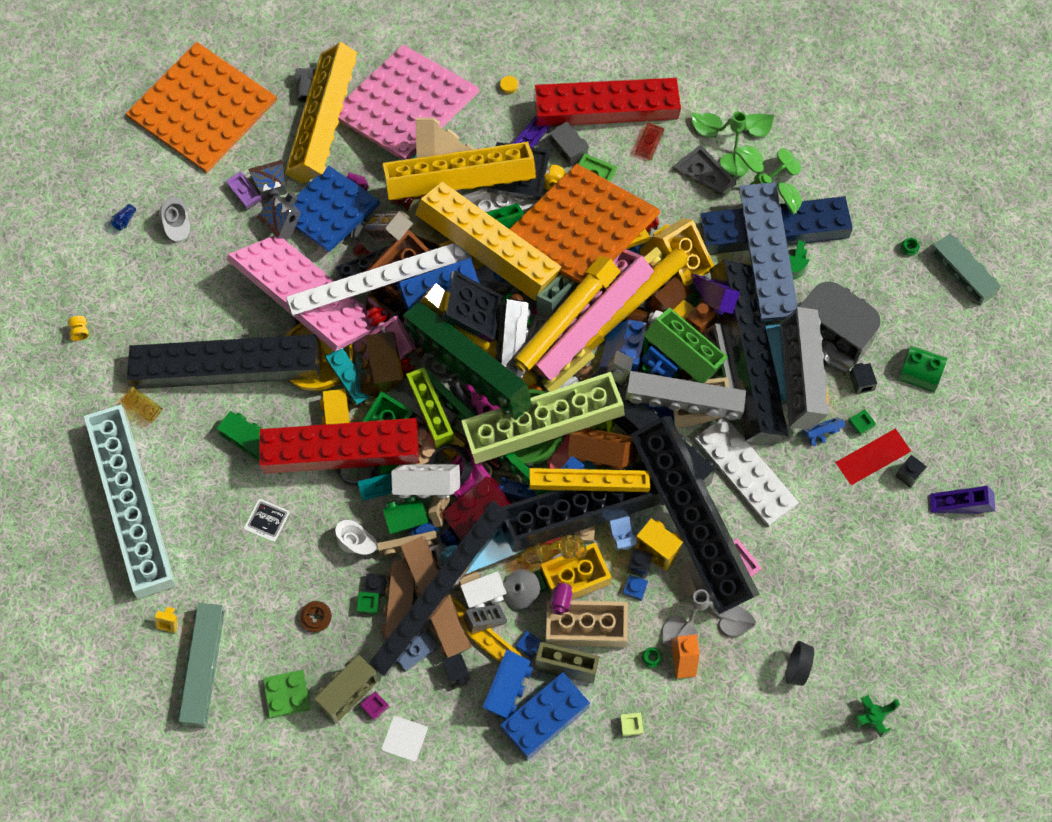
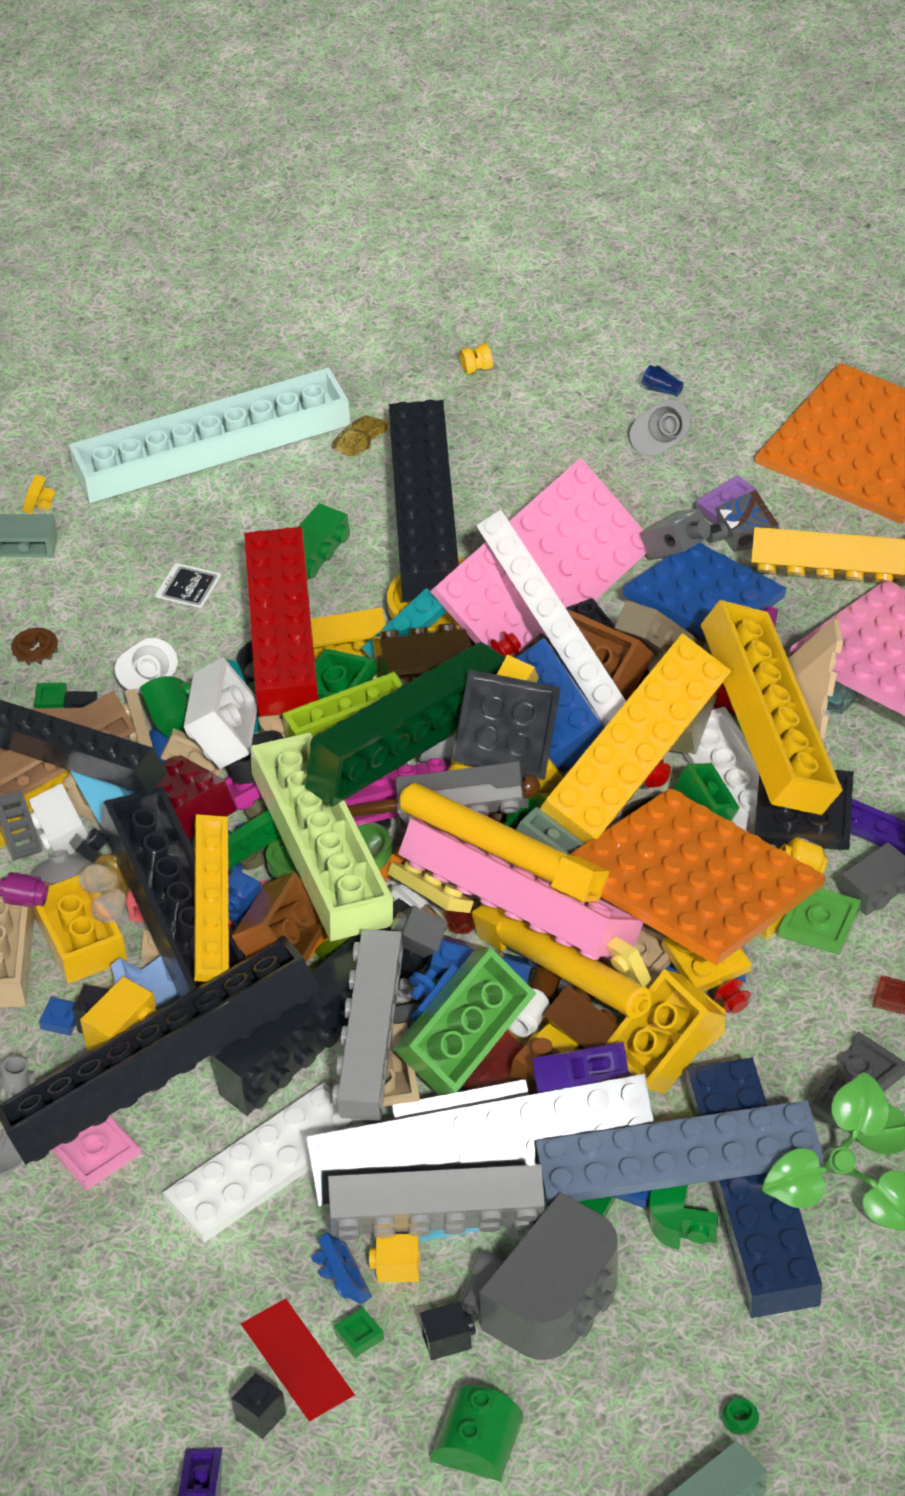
camera: 90 degrees right, 20 degrees down
(512, 570) = (90, 846): none -> black tile

